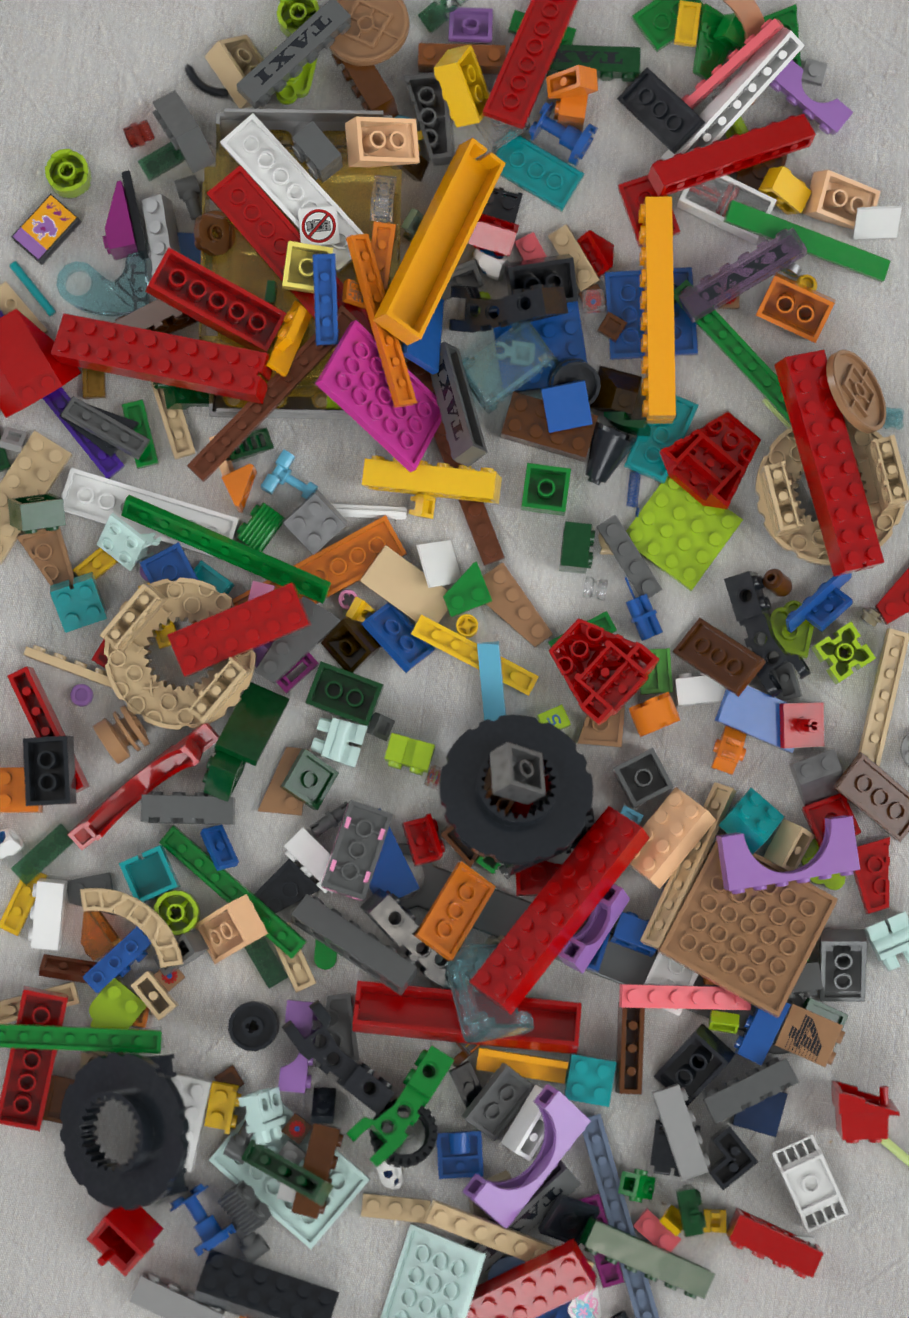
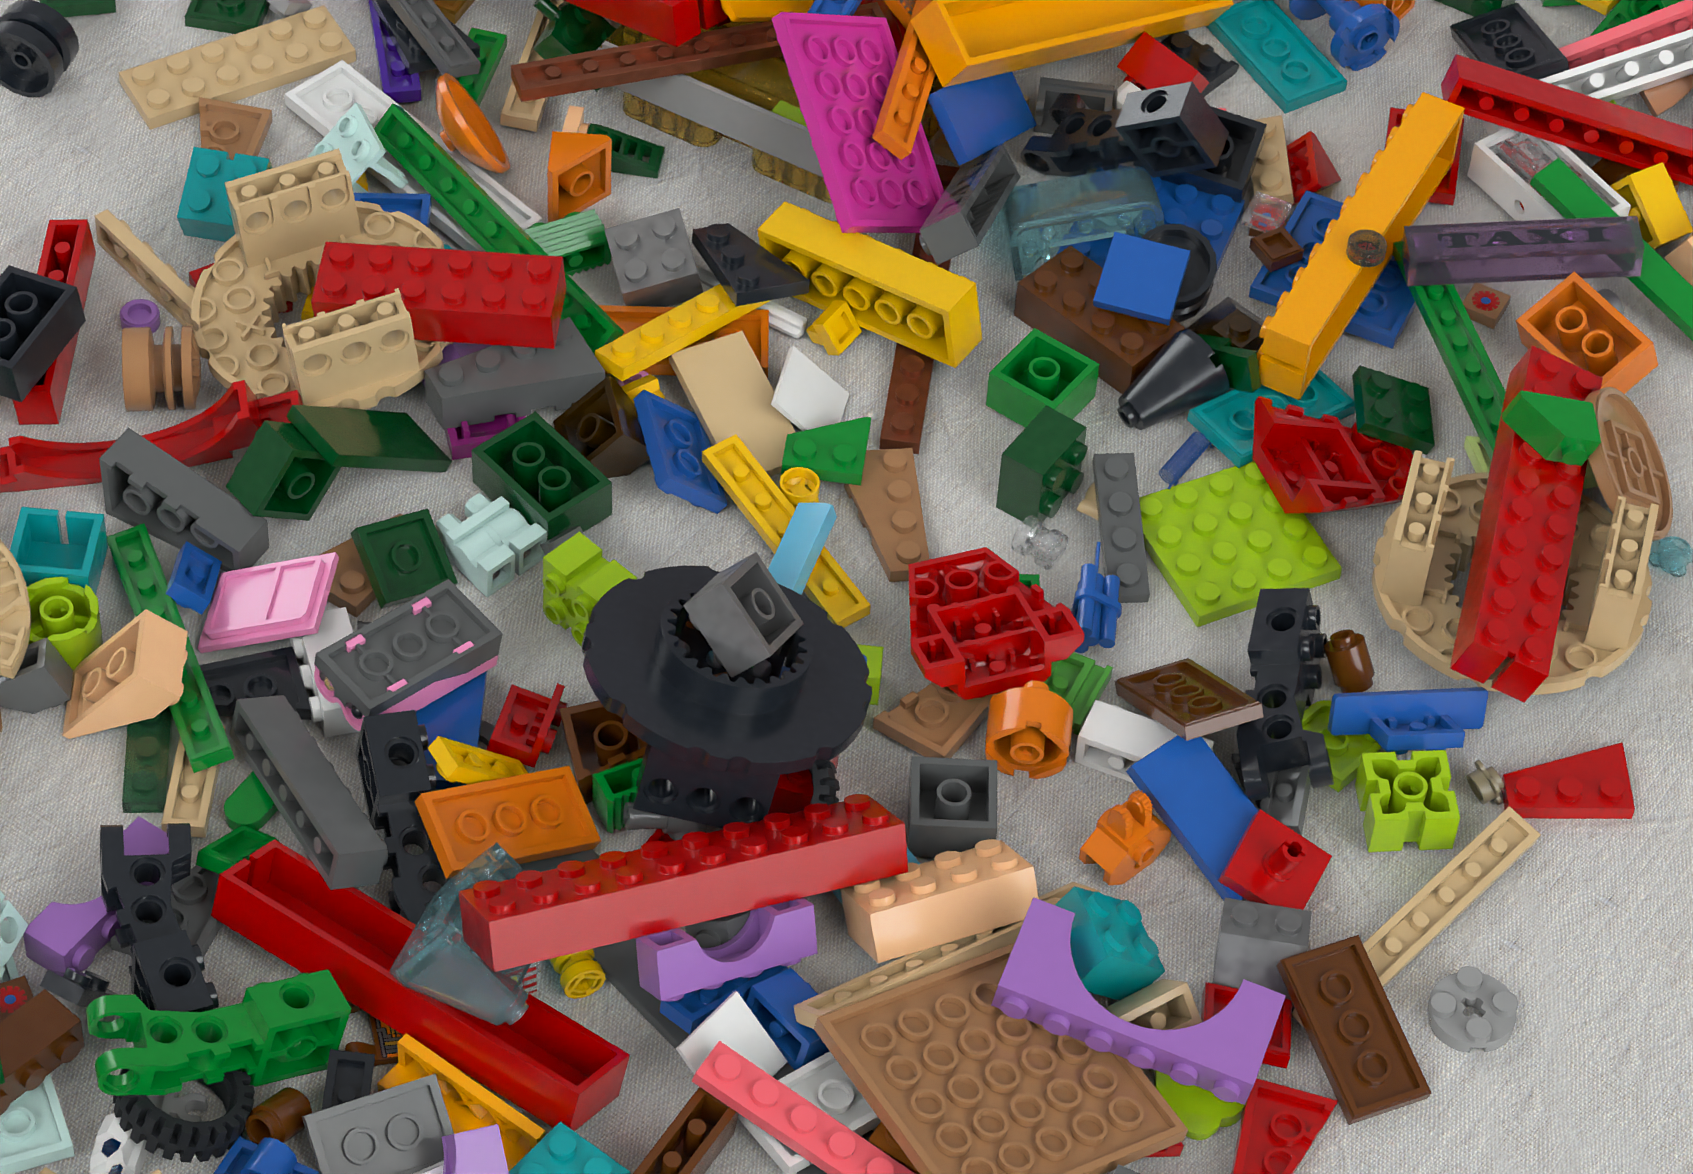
camera: 25 degrees right, 35 degrees down
(36, 512) = (250, 64): brick -> none
(171, 485) = (468, 127): none -> orange dish
(240, 1028) = (55, 831): black wheel -> none
(264, 842) = (268, 602): none -> bright pink piece
(282, 474) = (643, 203): medium azure bar -> none
(340, 989) = (231, 849): none -> green tile
(358, 553) = (670, 332): none -> yellow plate
(364, 504) = (745, 267): none -> black wing
(427, 890) = (471, 764): none -> yellow plate
(447, 1115) = (278, 1116): none -> reddish brown brick
(622, 968) = (738, 1029): none -> white piece
(672, 332) = (1366, 248): none -> clear smoke tile
(719, 402) = (1393, 410): none -> dark green plate
(826, 414) = (1554, 426): none -> green slope

